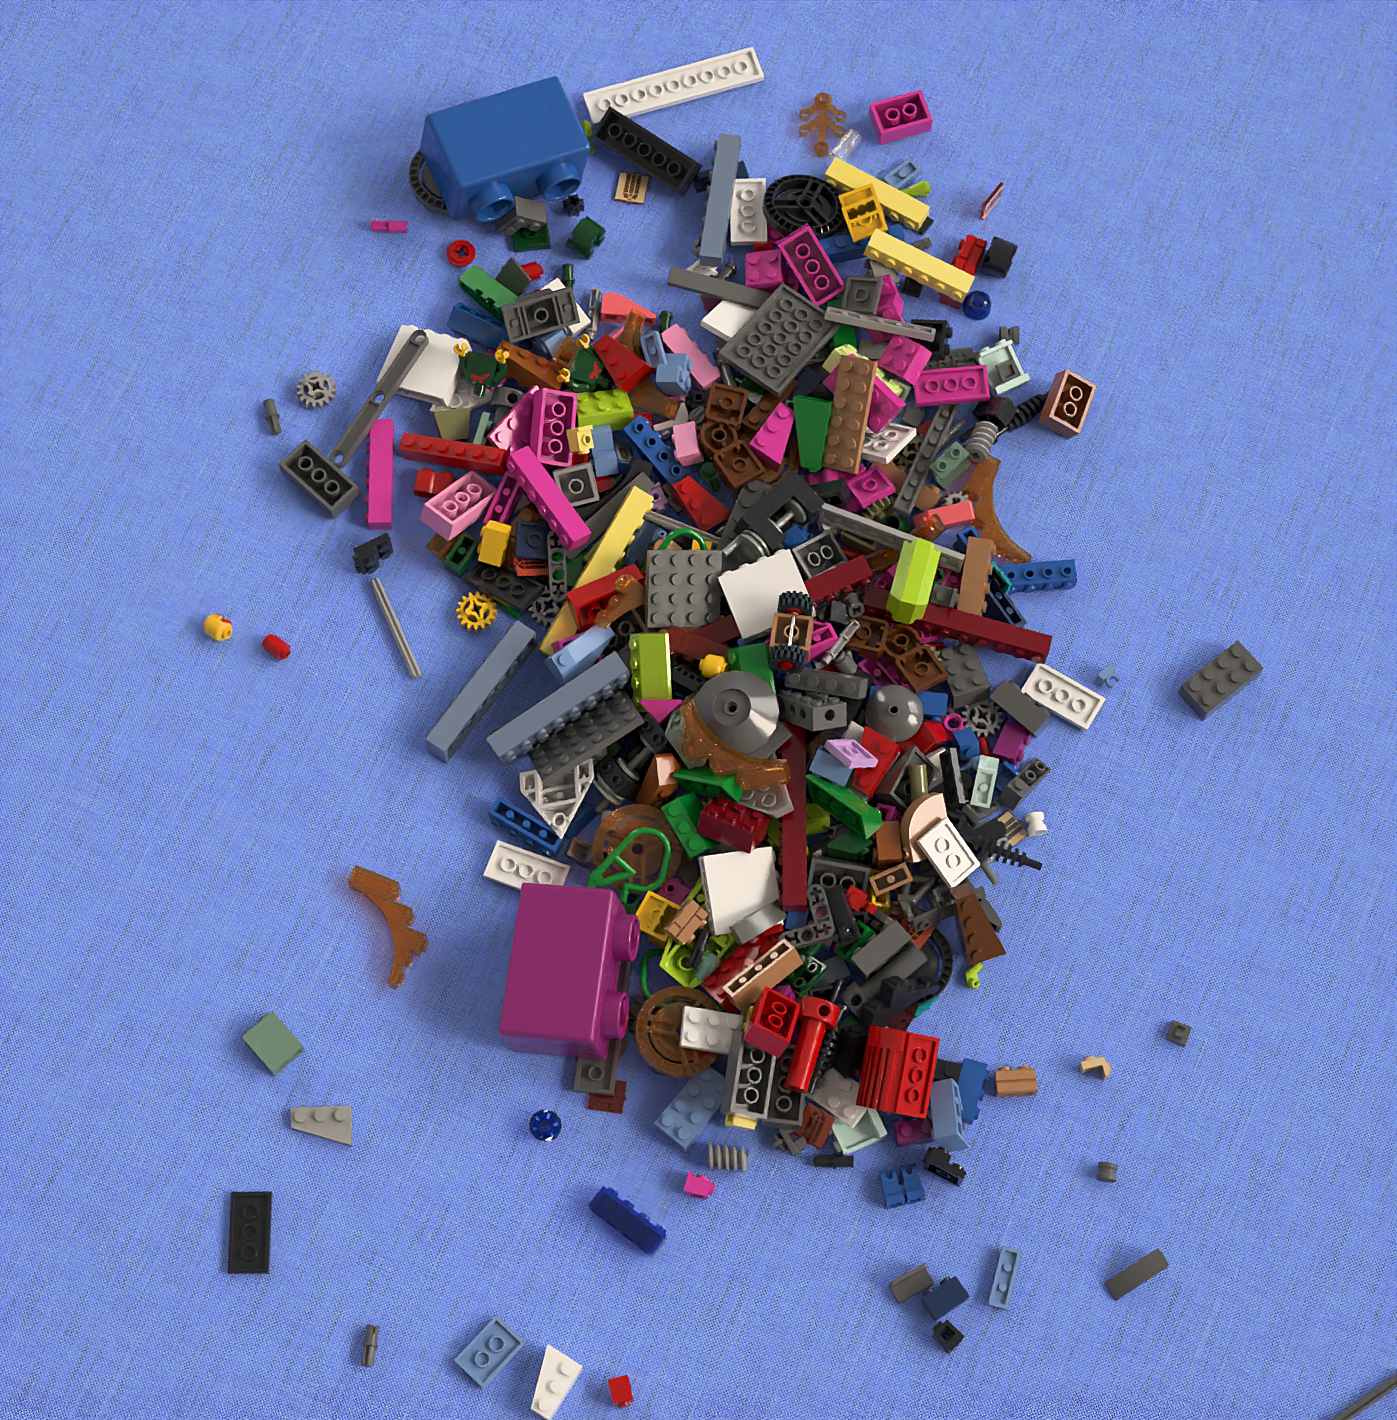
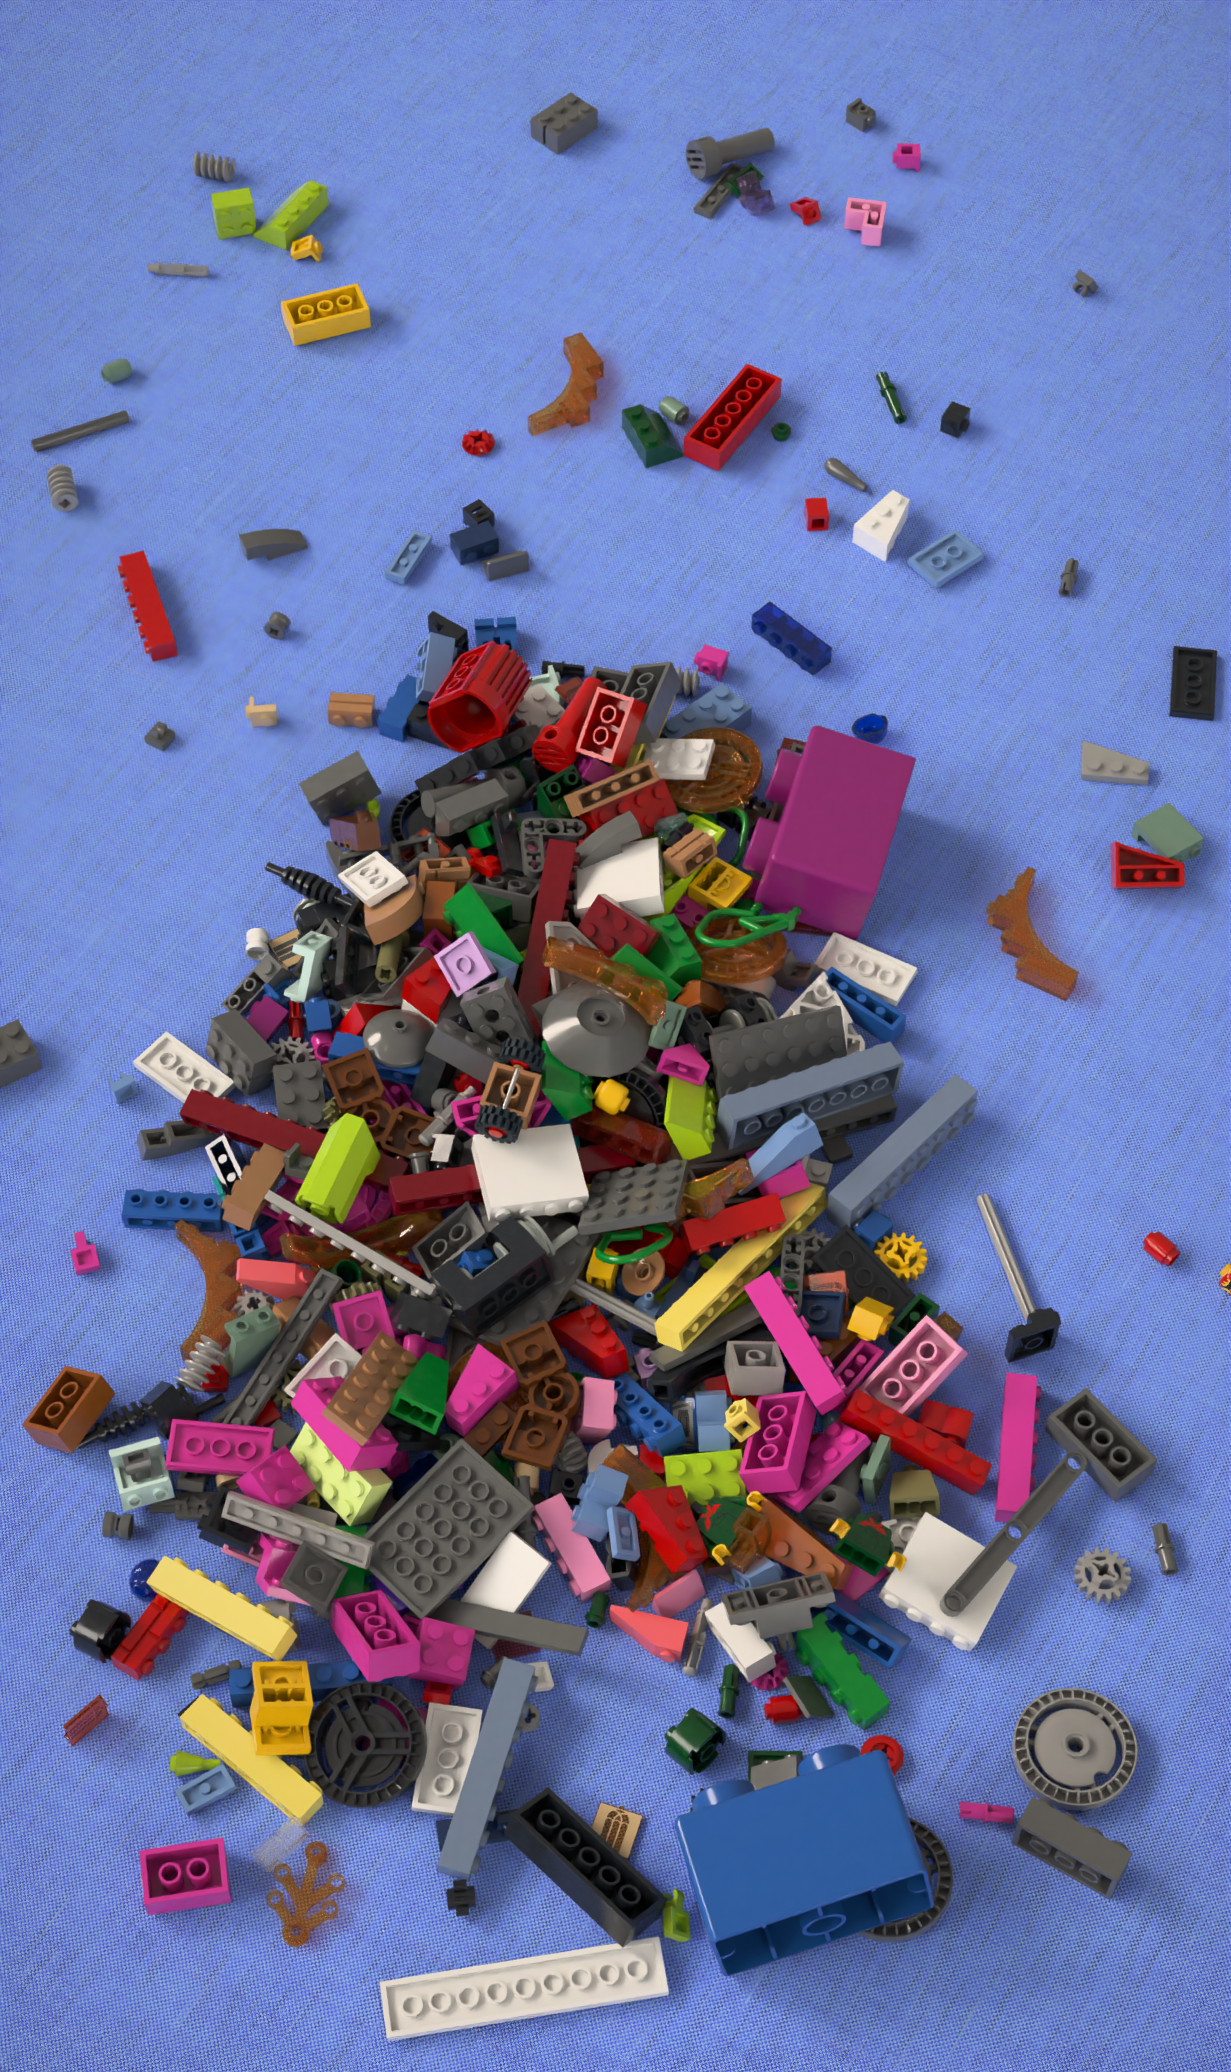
camera: 170 degrees left, 15 degrees down
(293, 995) = (1142, 870): none -> red wedge
(332, 202) = (1071, 1847): none -> dark grey brick
(332, 257) = (1078, 1729): none -> light grey piece
(496, 629) = (874, 1228): none -> blue brick
(532, 699) = (836, 1150): none -> dark grey tile
(547, 681) = (817, 1171): none -> white bracket
(722, 127) = (461, 1897): none -> black gear
(1001, 975) = (340, 788): none -> dark grey piece
(1063, 633) = (171, 1140): none -> dark grey slope
(1094, 531) = (84, 1256): none -> dark pink plate
(1233, 1179) = (148, 606): none -> red brick
(1358, 1313) = (62, 488): none -> light grey piece

